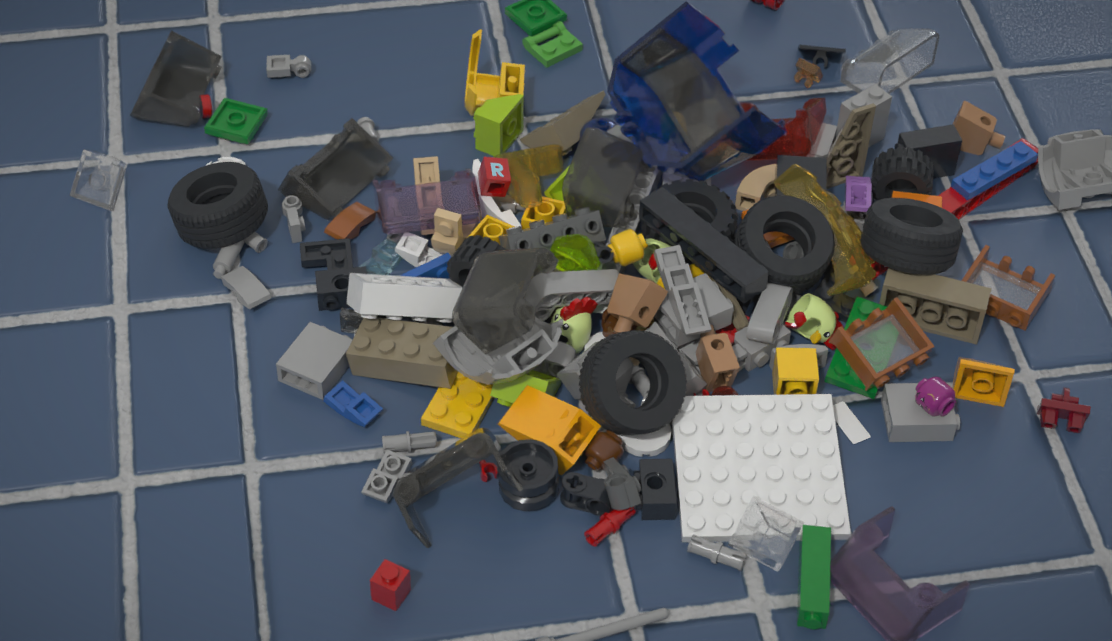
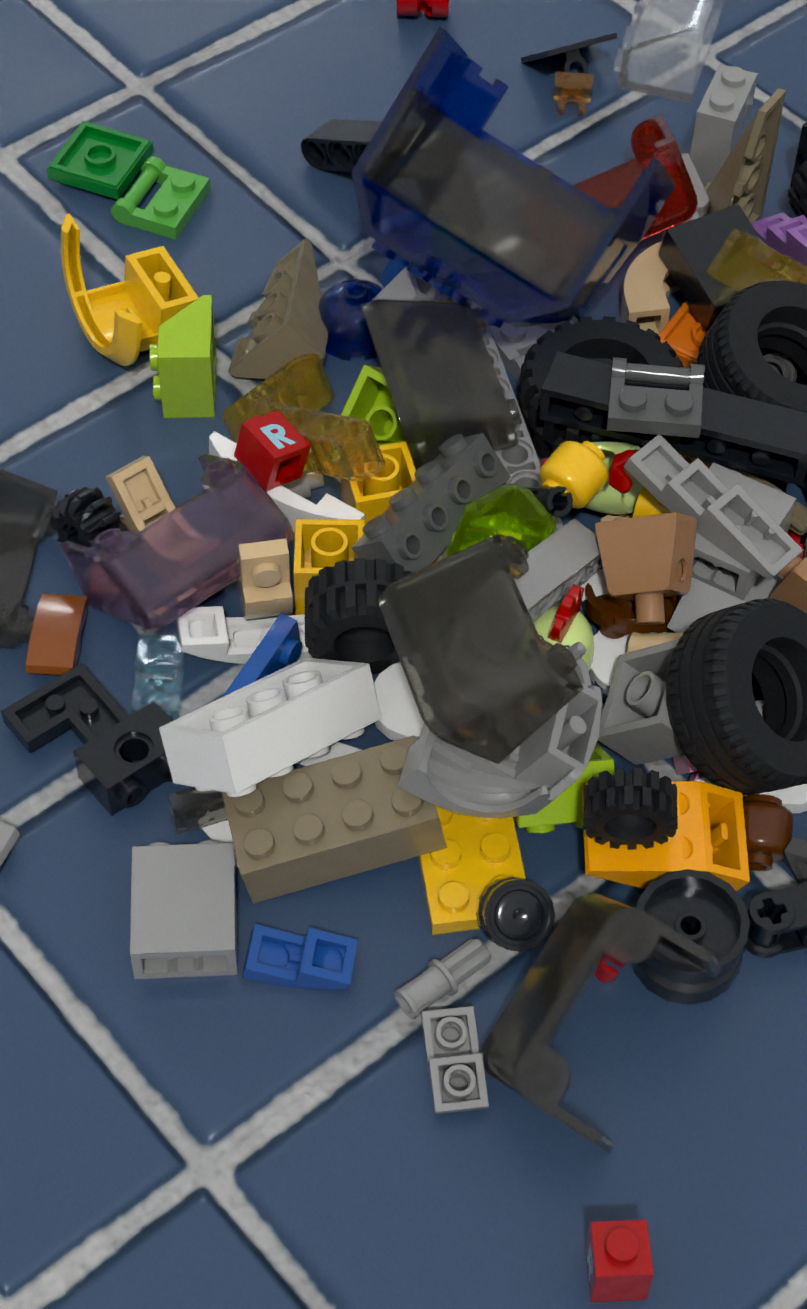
camera: 30 degrees left, 5 degrees up
(396, 170) = (84, 516): none -> black gear
(455, 426) = (515, 914): none -> black wheel
(528, 399) = (630, 808): none -> black tyre
(686, 232) = (655, 409): none -> dark grey plate

